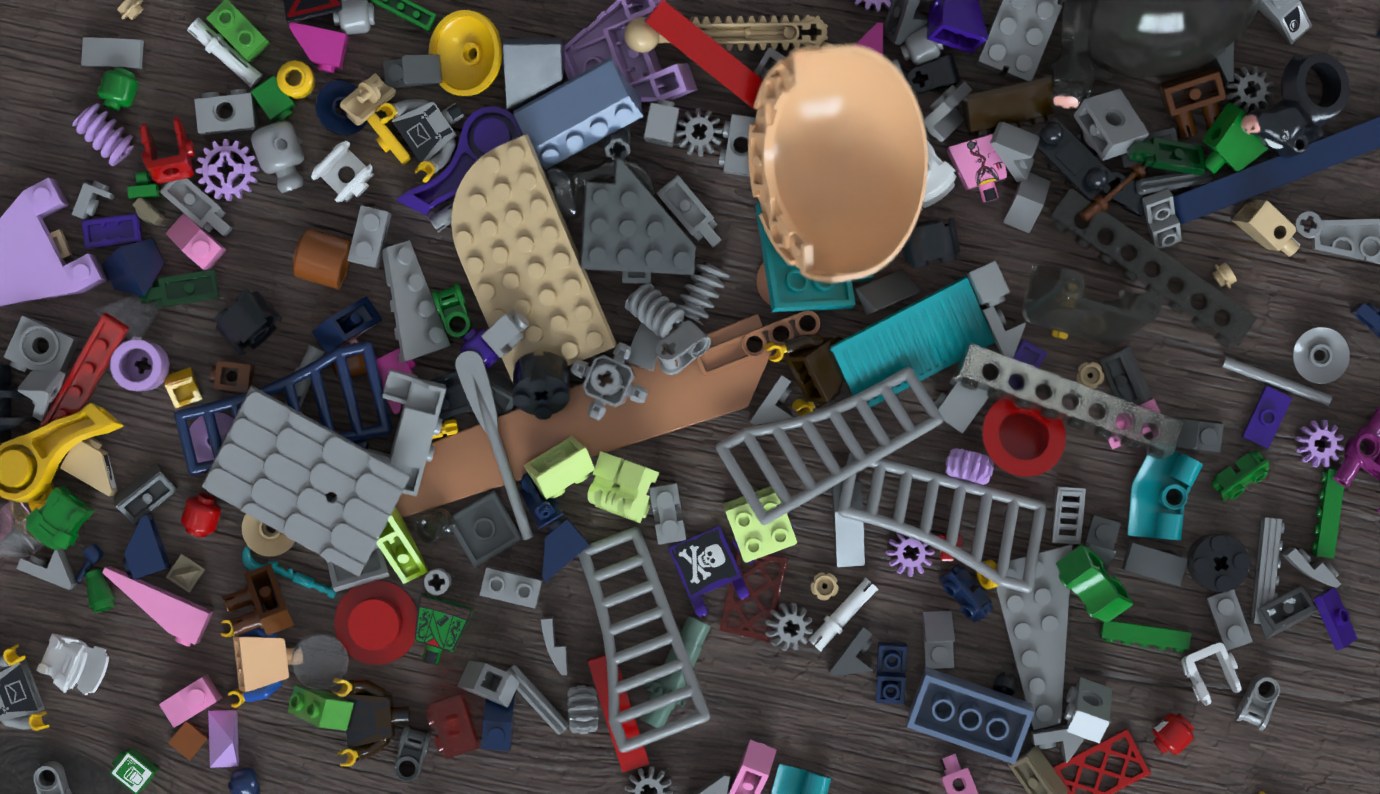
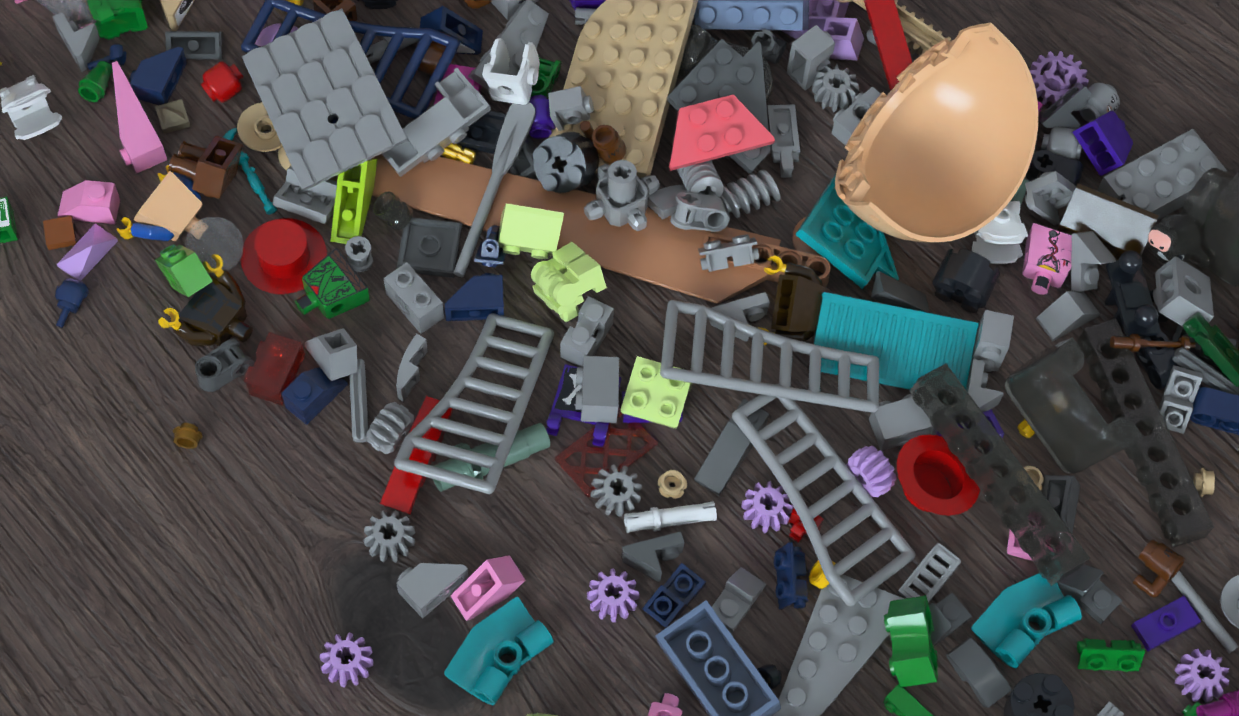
camera: 30 degrees right, 25 degrees down
(454, 334) = (496, 74): none -> white piece
(564, 349) = (606, 141): none -> reddish brown piece
(643, 272) = (715, 131): none -> coral wing
(714, 556) = (599, 389): none -> light grey brick
(720, 374) = (717, 253): none -> light grey hinge
(844, 700) = (615, 585): none -> lavender gear
(1234, 374) = (1162, 562): none -> reddish brown piece

